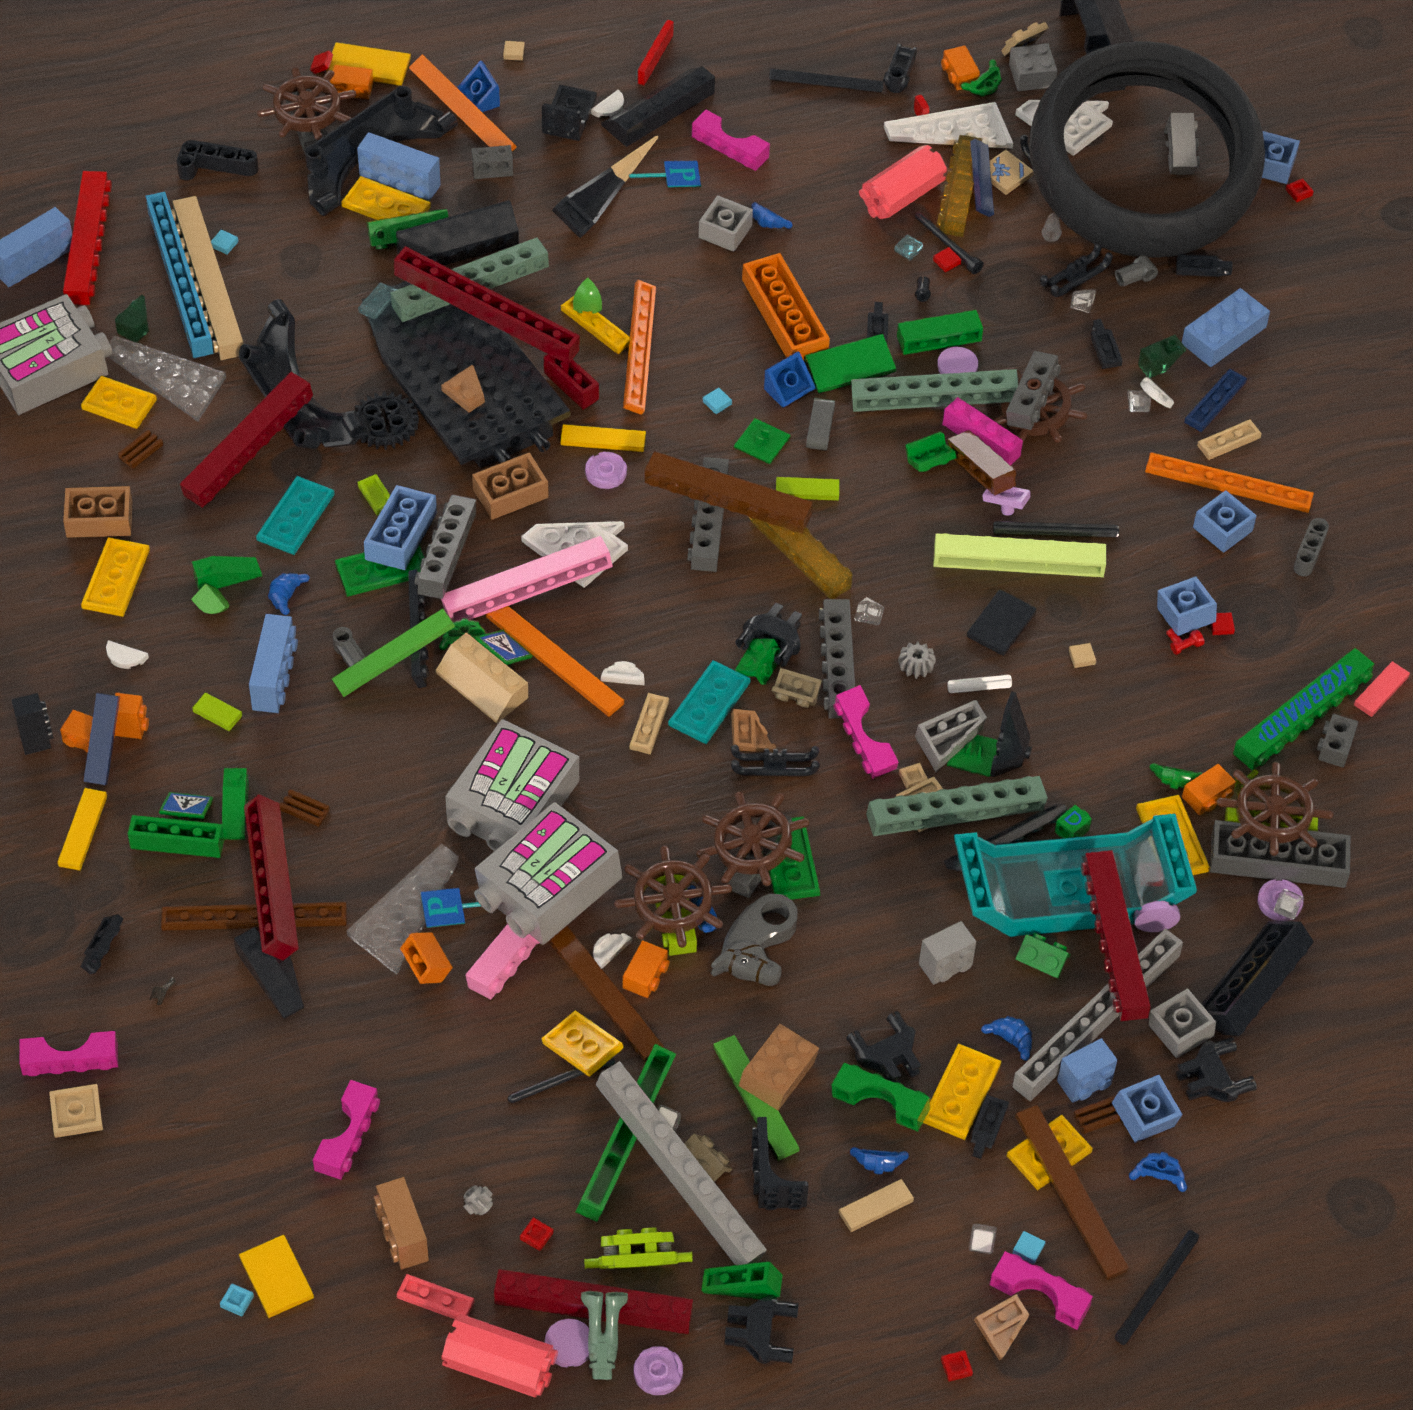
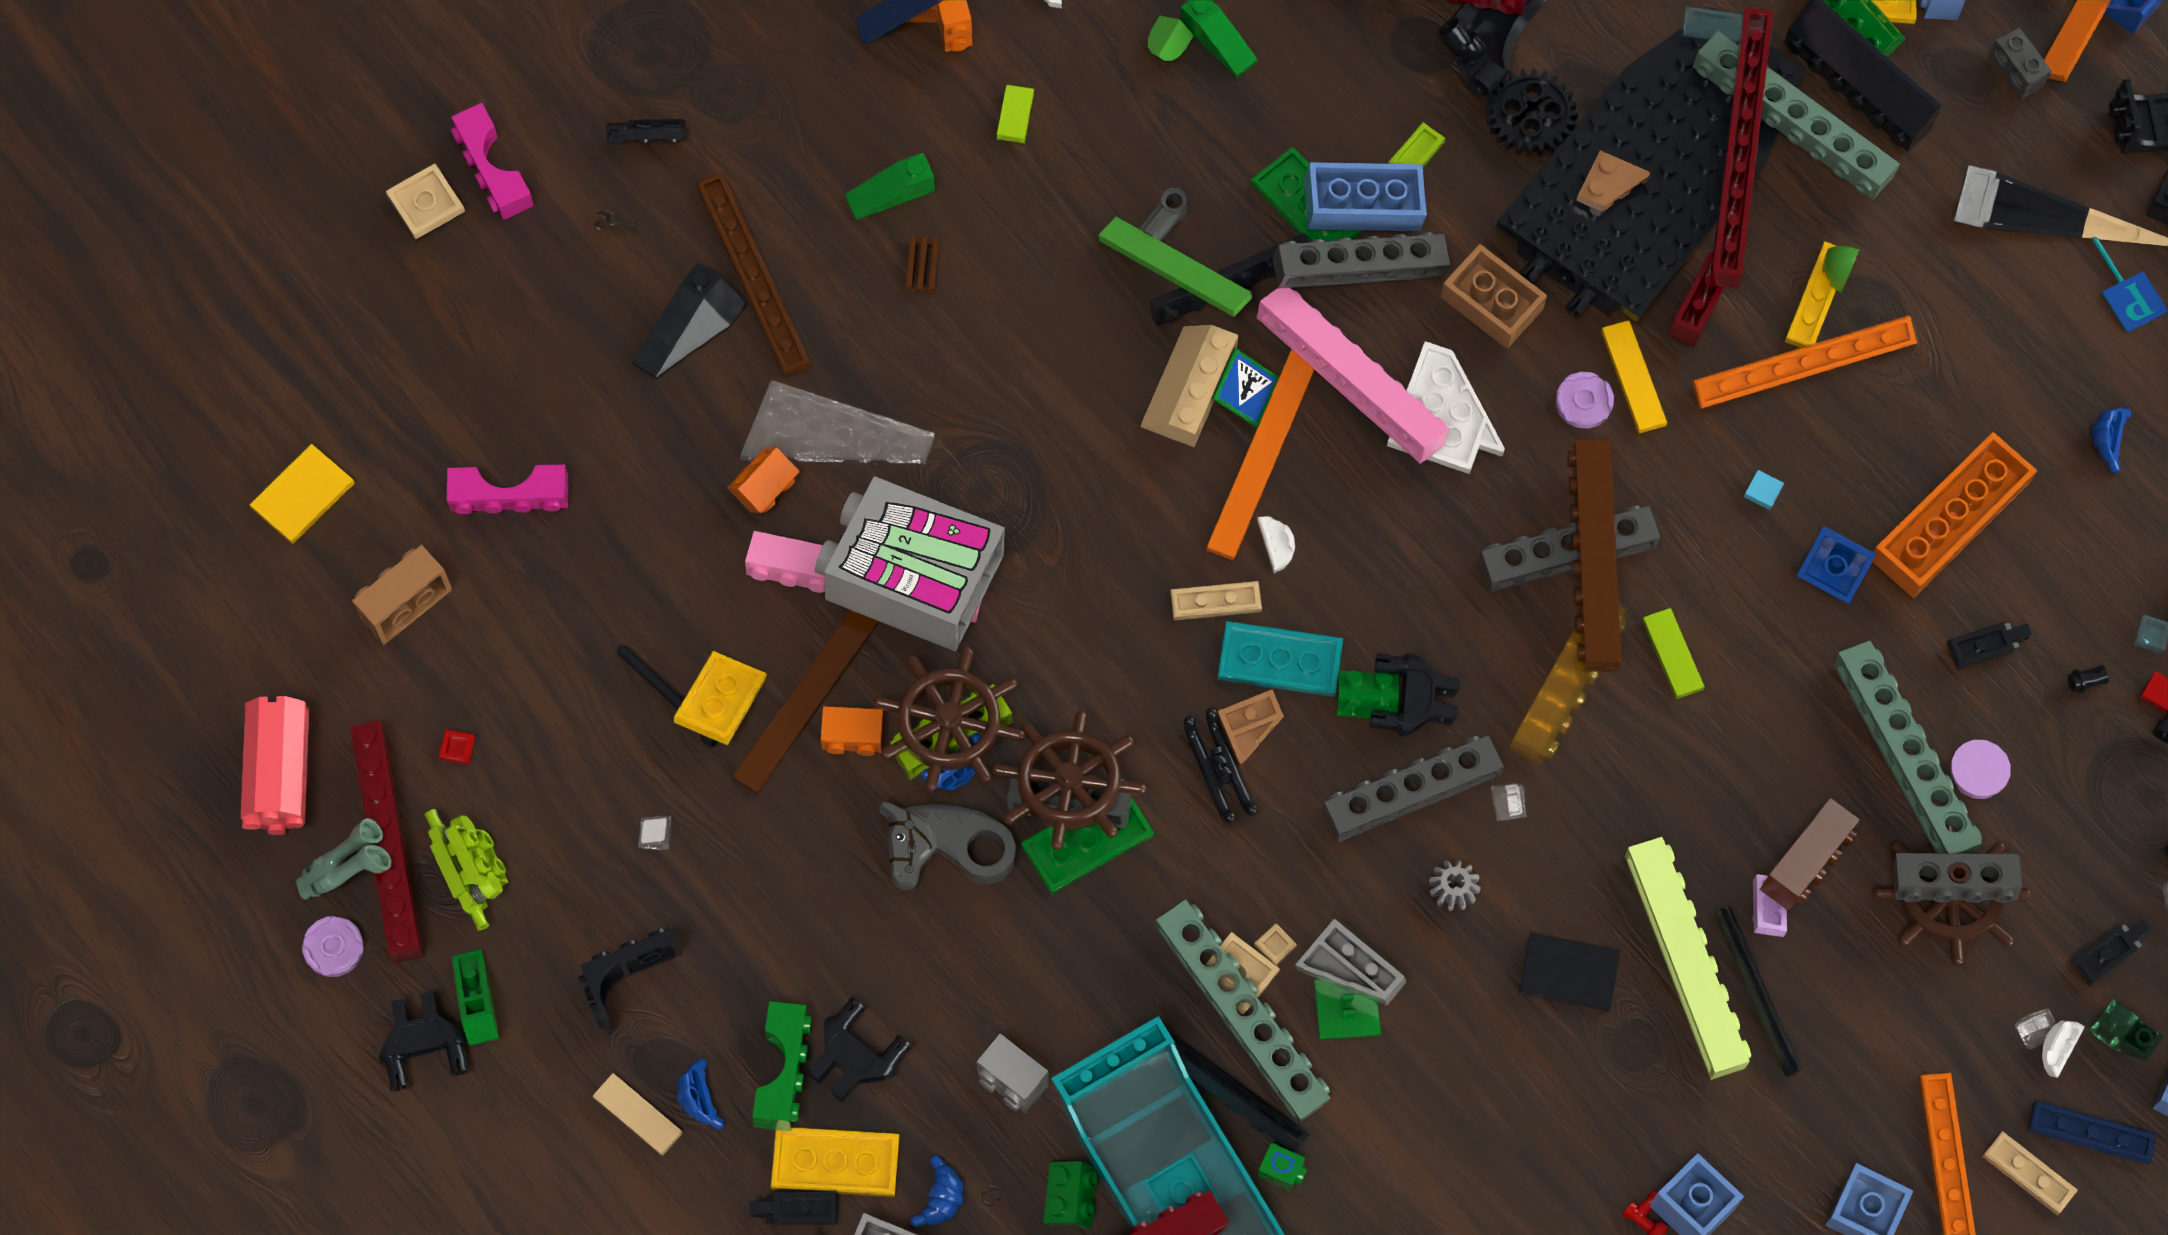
camera: 70 degrees right, 15 degrees up
(82, 829) = (792, 44): yellow tile -> none
(176, 836) = (814, 143): green brick -> none
(186, 805) = (865, 136): piece -> none
(236, 1299) = (259, 466): medium azure tile -> none
(271, 877) = (798, 267): dark red brick -> none
(272, 663) = (1097, 140): medium blue brick -> none
(283, 588) = (1224, 109): blue piece -> none
(295, 515) = (1342, 75): teal tile -> none
(434, 1297) = (336, 671): coral tile -> none
(444, 907) = (845, 470): blue piece -> none
(461, 627) = (1250, 333): green piece -> none
(478, 1200) = (469, 665): light grey gear -> none
(509, 784) = (1034, 476): brick -> none
(570, 1341) = (326, 830): lavender tile -> none
(609, 947) = (870, 677): white tile -> none
(623, 1139) = (615, 791): green brick -> none
(680, 1166) = (581, 867): light grey brick -> none
(713, 1162) = (621, 894): dark tan bracket -> none
(725, 223) = (2063, 385): light grey brick -> none
(735, 1062) = (730, 923): bright green tile -> none
(762, 441) = (1727, 570): green piece -> none
(778, 1067) = (771, 931): medium nougat brick -> none
(797, 687) = (1341, 754): dark tan bracket -> none
(820, 424) = (1784, 630): dark grey beam -> none
(851, 361) = (1905, 631): green tile -> none
(877, 756) = (1276, 887): dark pink arch -> none
(929, 452) = (1802, 784): green bracket -> none
(939, 332) = (2017, 725): green brick -> none
(962, 417) = (1871, 840): dark pink arch -> none
(980, 683) = (1456, 977): white axle -> none
(1013, 739) = (1362, 1041): black wedge -> none
(1082, 655) = (1563, 1092): tan tile -> none

